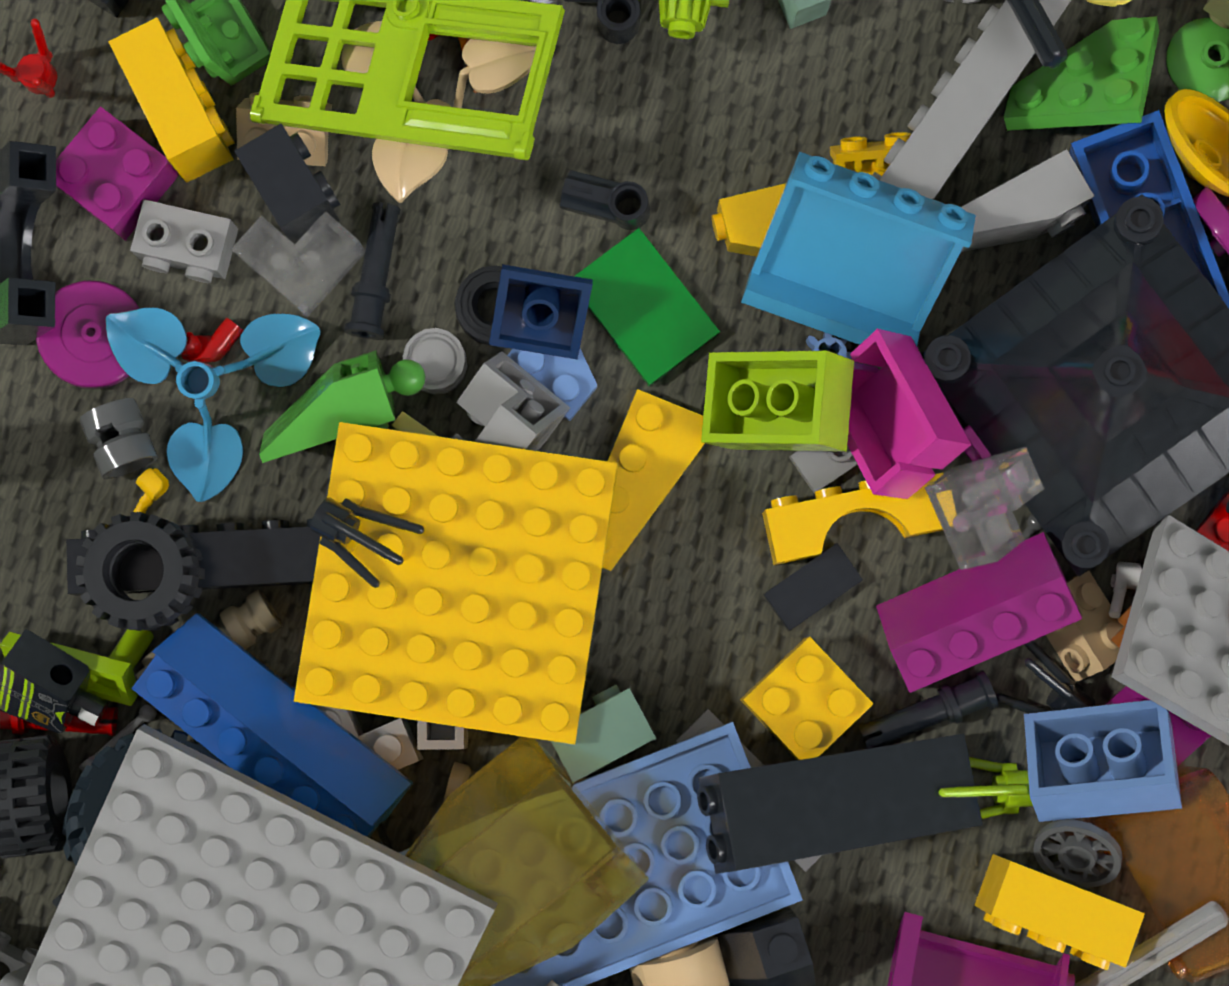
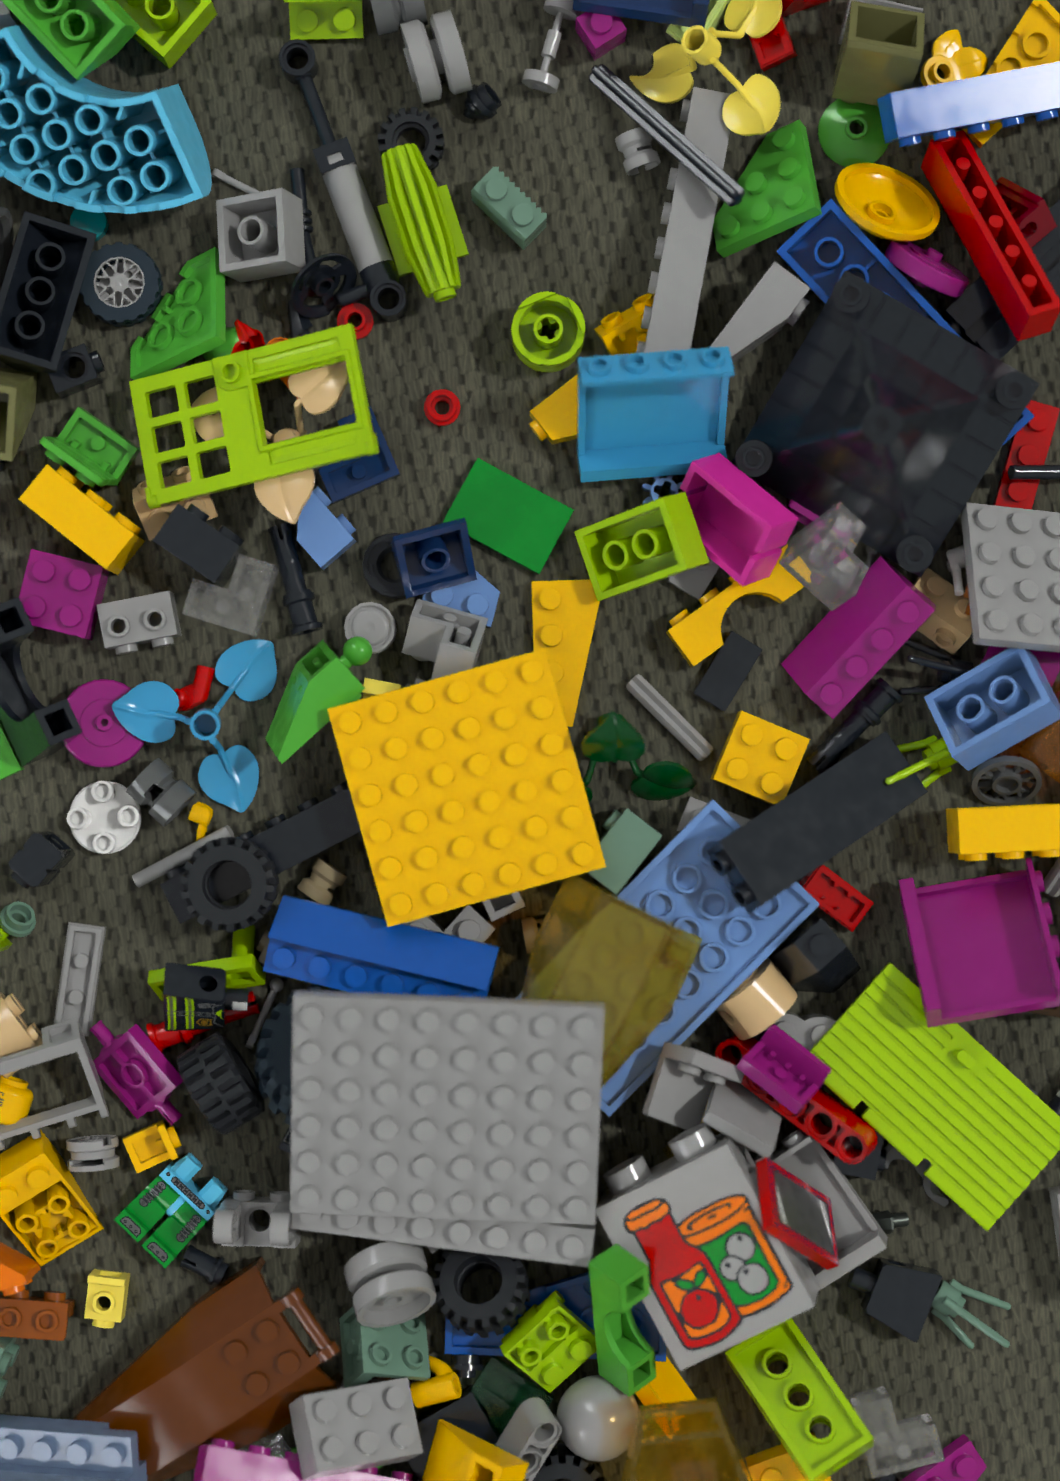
camera: 25 degrees left, 5 degrees up
(44, 439) = (104, 817): none -> white dish
(83, 522) = (177, 859): none -> light grey bar
(338, 524) = (362, 784): black plant -> none
(428, 230) = (321, 532): none -> medium blue slope
(508, 183) = (361, 473): none -> dark blue plate
(580, 33) = (357, 309): none -> red plate
(601, 198) = (438, 448): black piece -> none
(628, 144) = (433, 399): none -> red plate
(654, 605) = (618, 740): none -> dark green plant
(724, 609) = (669, 717): none -> light grey axle
(781, 98) = (556, 313): none -> lime brick
(825, 899) = (836, 897): none -> red plate

